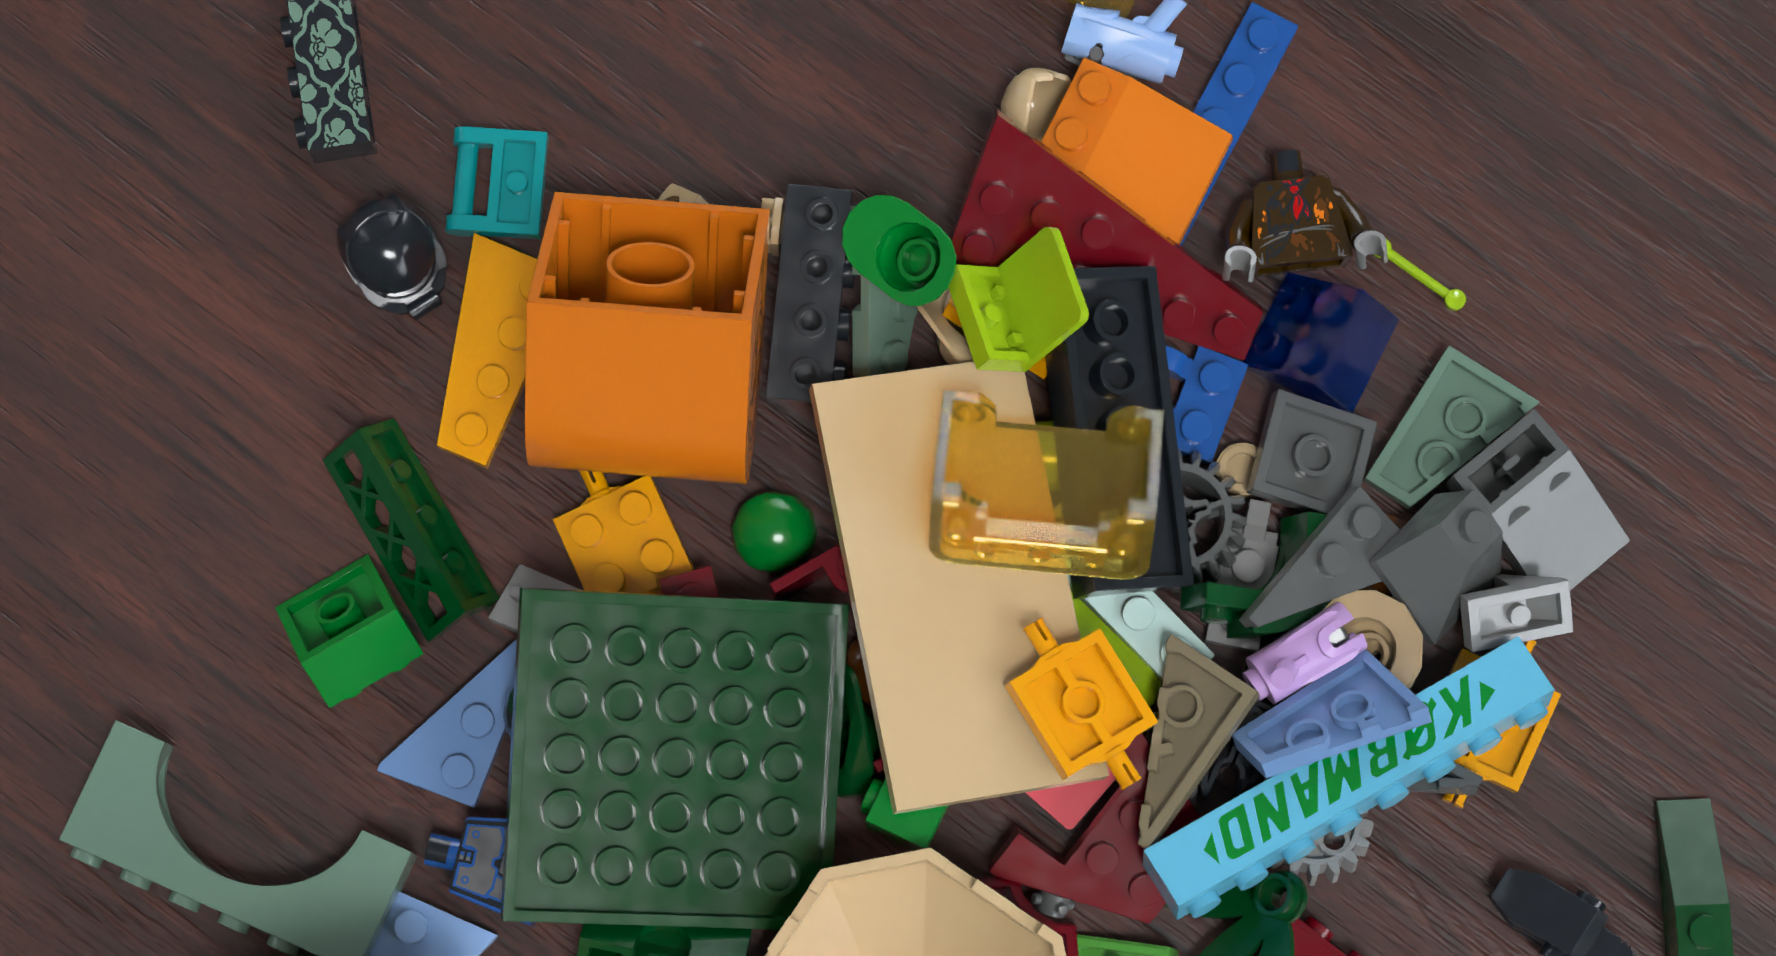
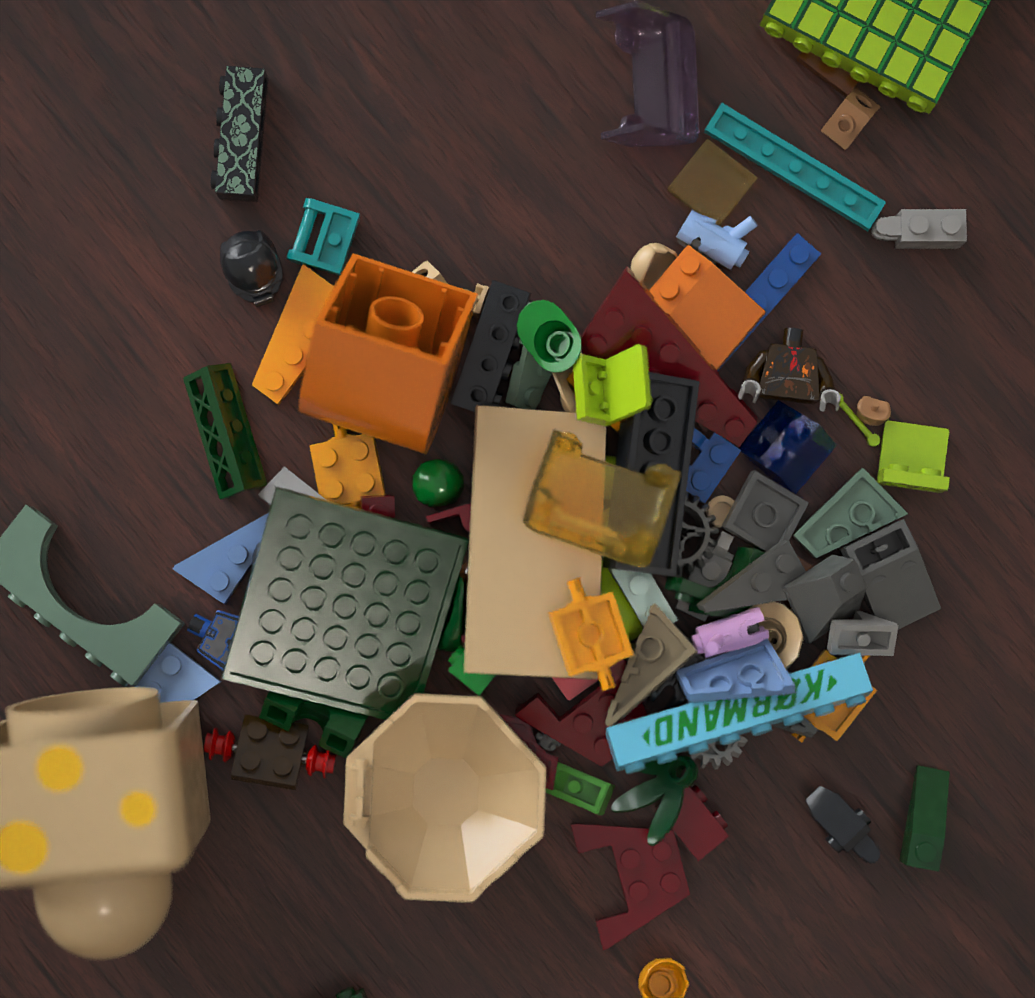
camera: 15 degrees right, 5 degrees up
(348, 631) = (174, 483): green slope -> none
(1442, 254) = (873, 411): none -> medium nougat piece
(1525, 311) = (913, 457): none -> lime bracket

